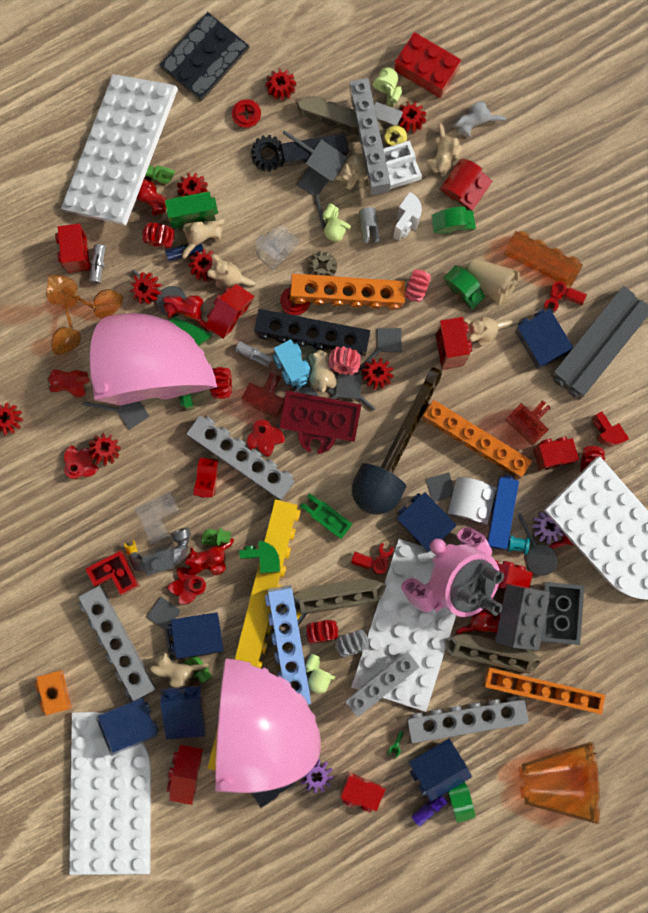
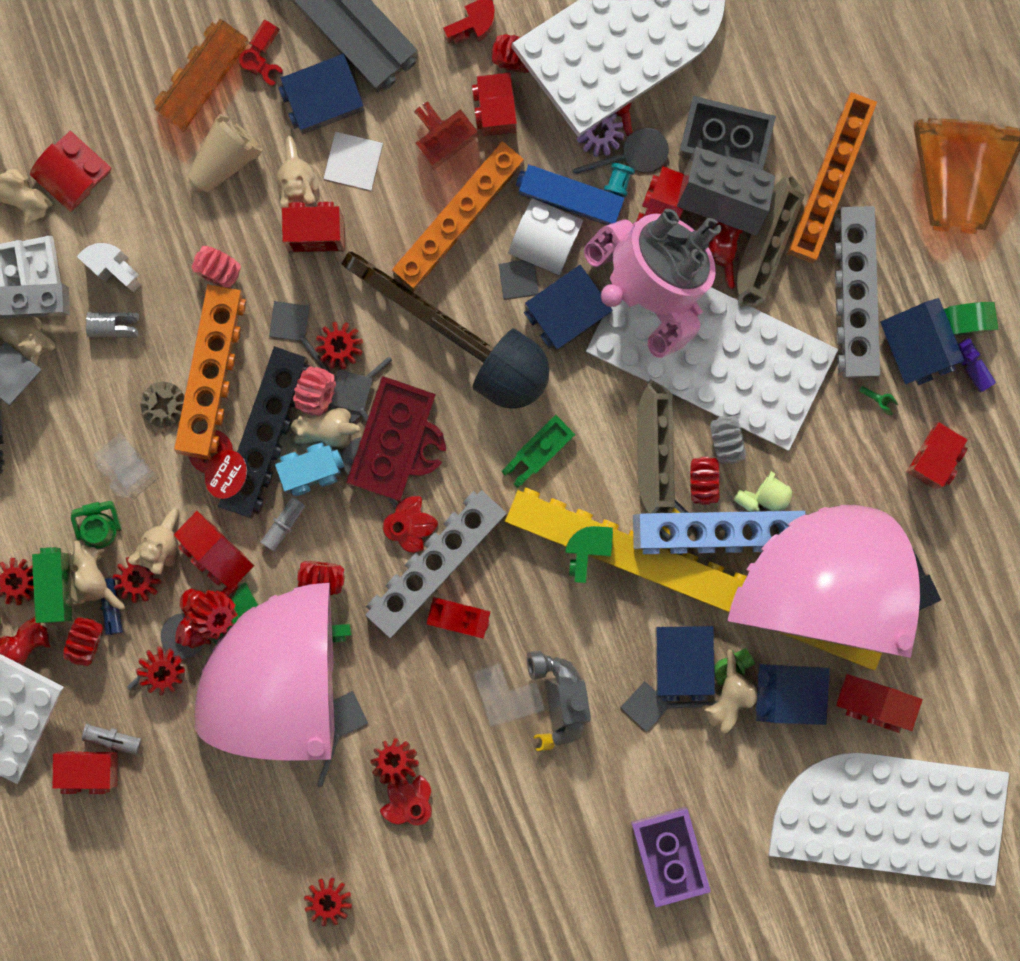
camera: 80 degrees left, 5 degrees up
(61, 701) = (721, 872): orange brick -> none
(62, 291) = (154, 789): clear orange plant -> none
(62, 644) = (670, 856): none -> medium lavender brick
(68, 381) = (286, 798): red animal -> none
(115, 568) = (573, 764): red brick -> none
(127, 726) = (800, 777): dark blue brick -> none
(145, 683) = (751, 763): light grey brick -> none
(184, 586) = (608, 670): red plate -> none
(185, 313) = (212, 614): none -> red gear
(209, 559) = (577, 626): red animal -> none
(215, 537) = (546, 617): bright green piece -> none
(234, 236) = (97, 528): none -> green piece
(264, 398) = (351, 517): clear red brick -> none
(281, 310) = (225, 474): none -> red sticker
(314, 184) = (36, 399): dark grey piece -> none
(318, 783) = (916, 516): medium lavender gear -> none
(335, 227) = (108, 376): yellowish green piece -> none
(378, 565) = (620, 384): red bar -> none
(382, 683) = (791, 405): light grey brick -> none
(453, 219) = (124, 199): green brick -> none
(465, 285) = (225, 197): green brick -> none
(502, 366) = (353, 161): none -> white sticker

